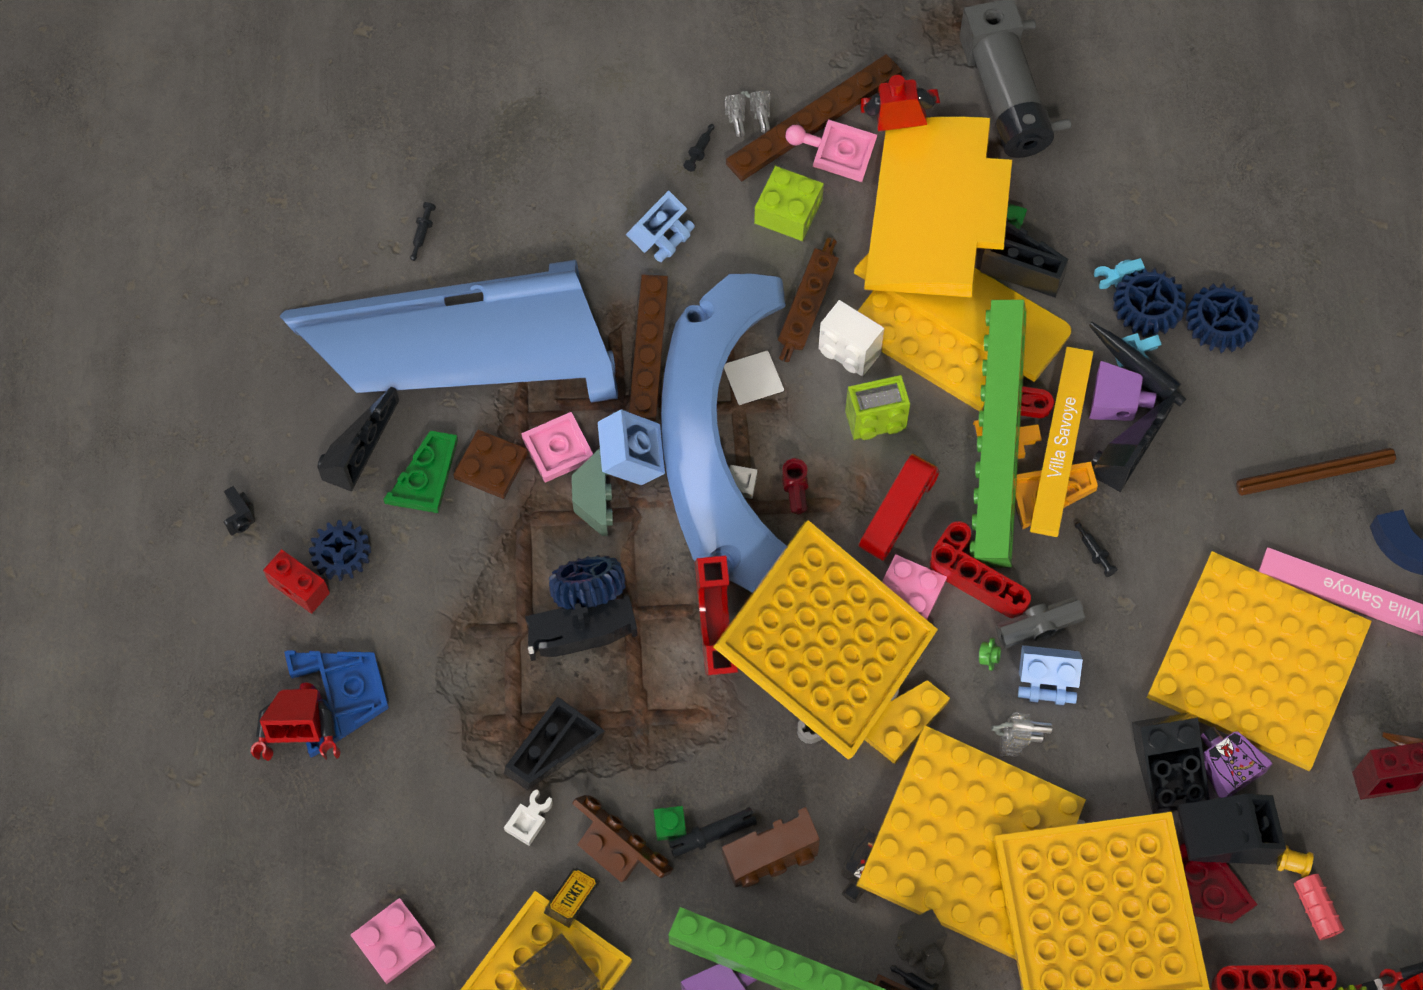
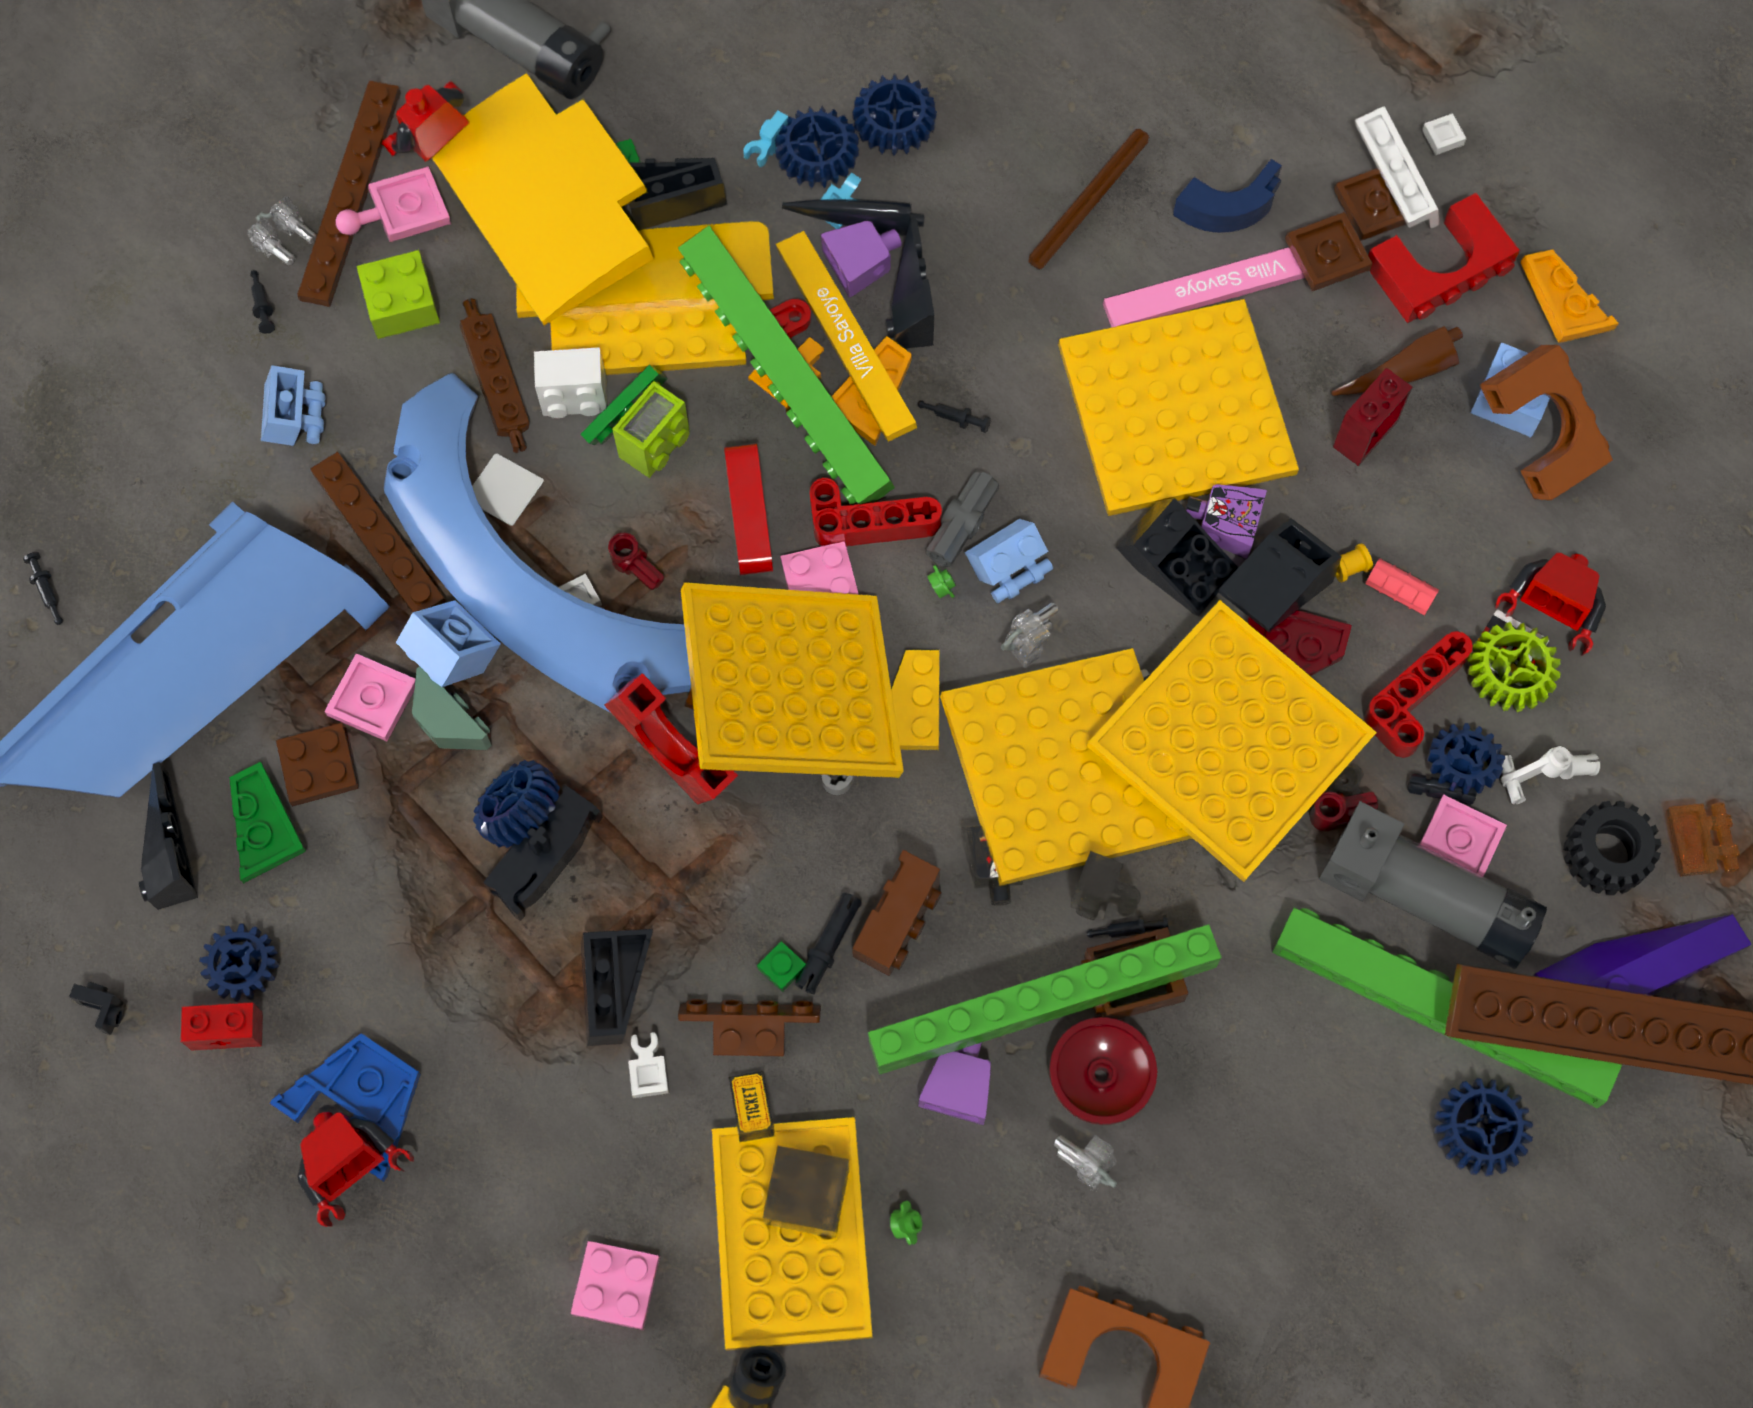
camera: 40 degrees left, 5 degrees up
(840, 382) = (601, 428): none -> green wing

